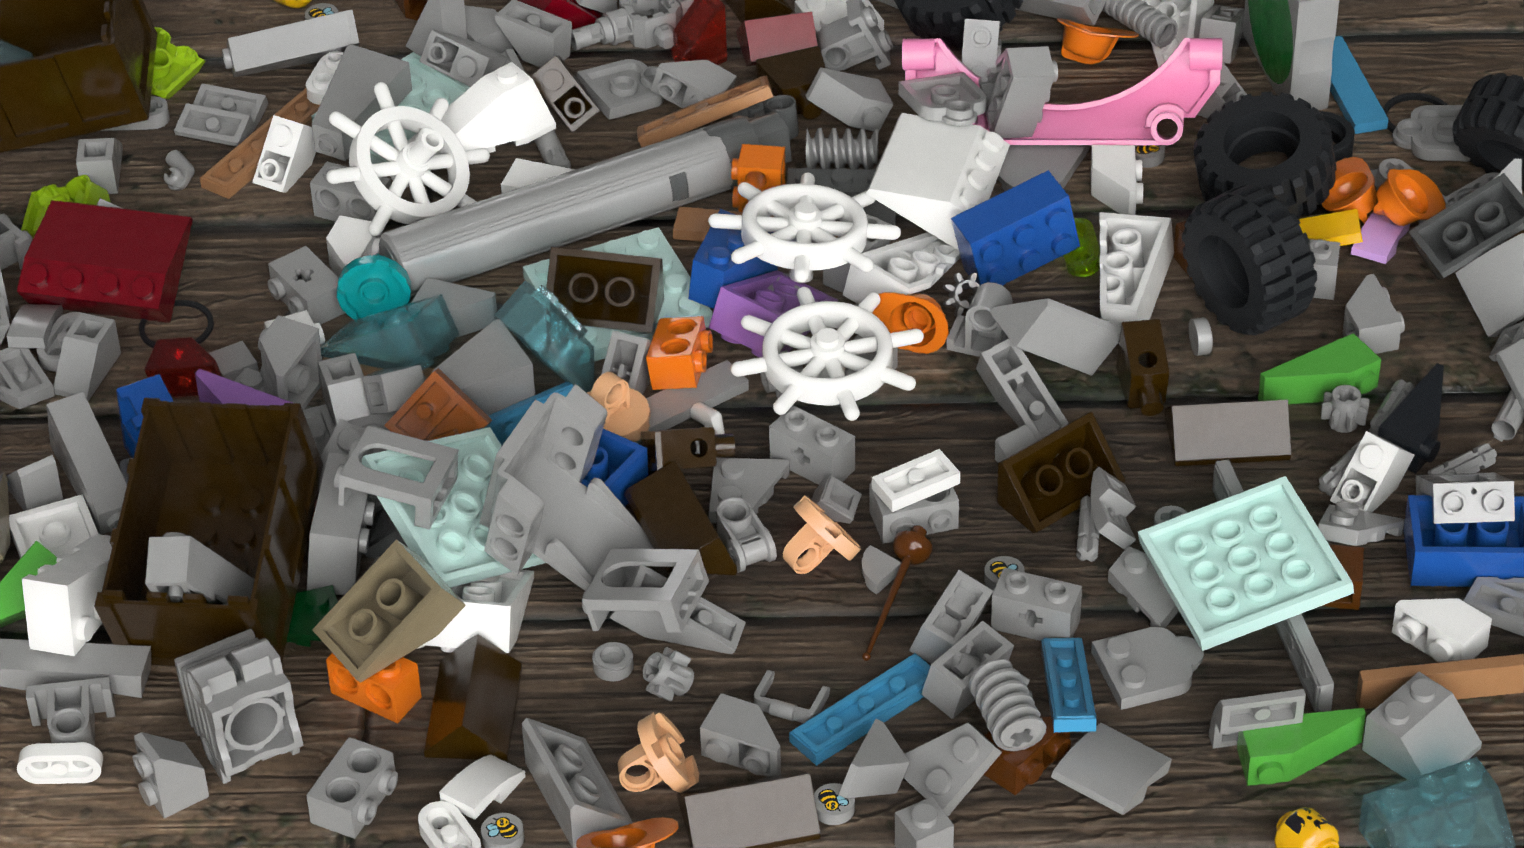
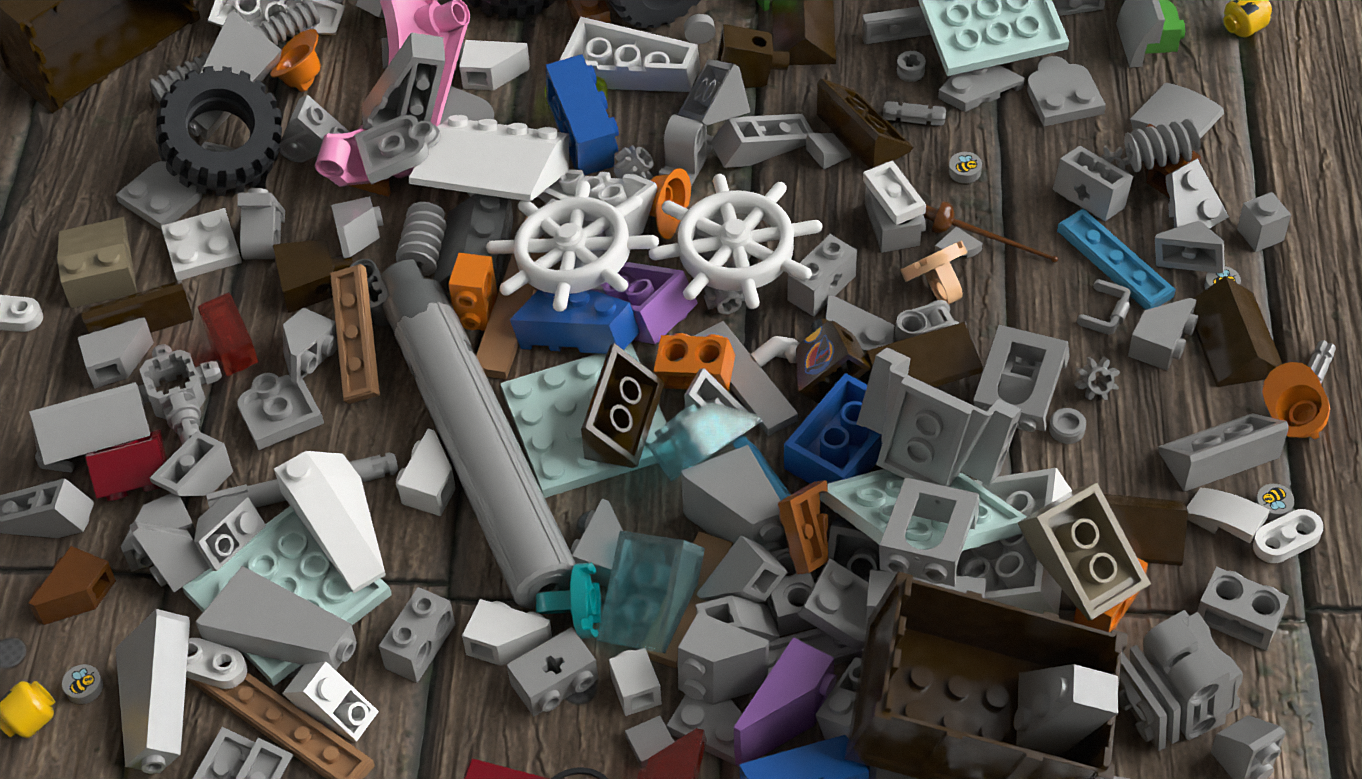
camera: 85 degrees left, 10 degrees up
(407, 162) = (413, 562): white piece -> none
(565, 93) = (281, 446): slope -> none
(626, 408) = (779, 409): light nougat tile -> none
(661, 755) = (1200, 377): light nougat tile -> none
(776, 36) = (245, 273): slope -> none
(837, 499) = (874, 273): light grey slope -> none
(951, 617) = (1039, 184): light grey brick -> none
(1035, 606) = (1014, 143): light grey brick -> none
(1068, 685) = (1102, 125): dark azure tile -> none
(1110, 507) = (892, 93): light grey slope -> none

